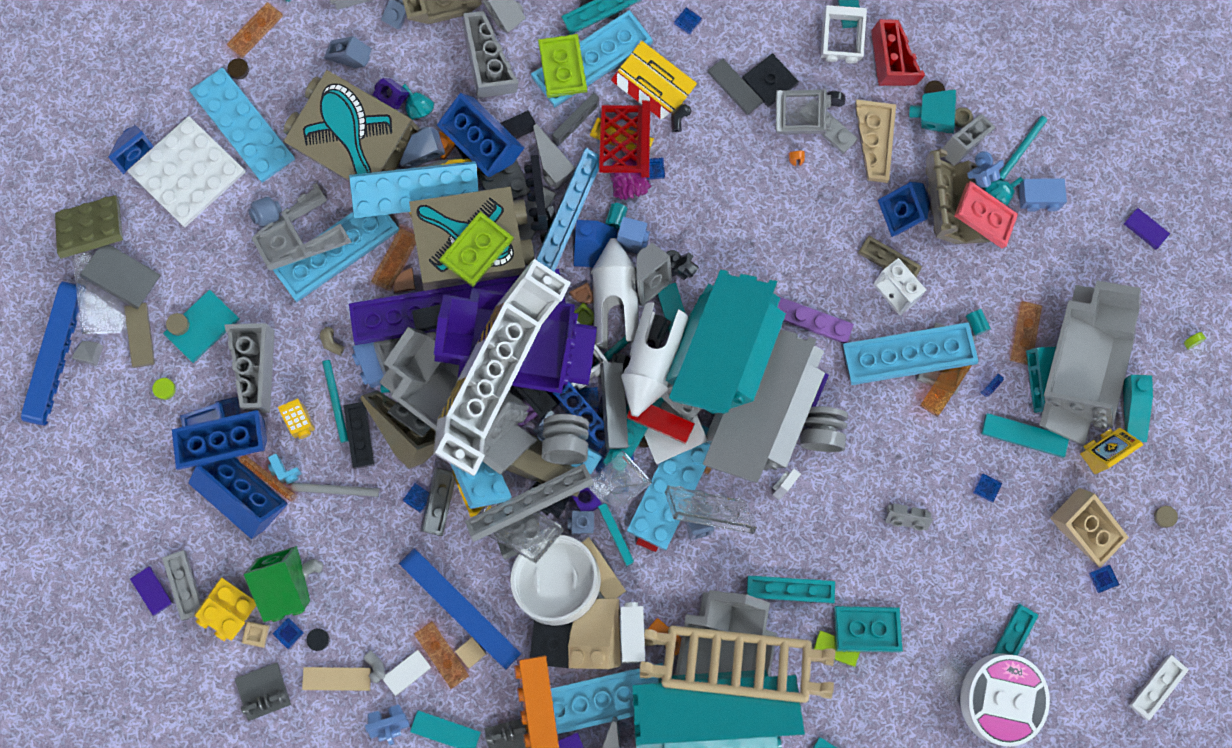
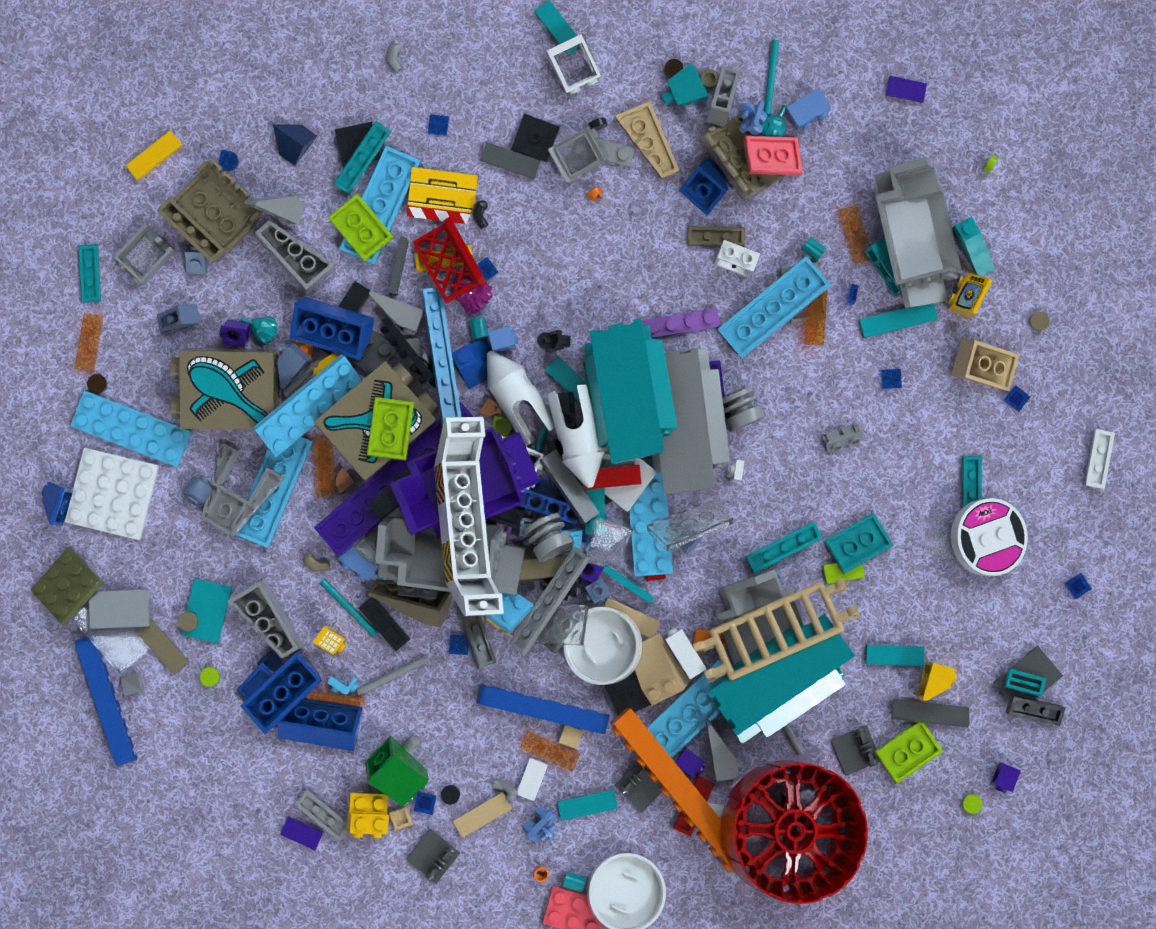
camera: 30 degrees left, 10 degrees up
(652, 272) = (536, 361): light grey slope -> none
(893, 56) = (624, 59): red wedge -> none

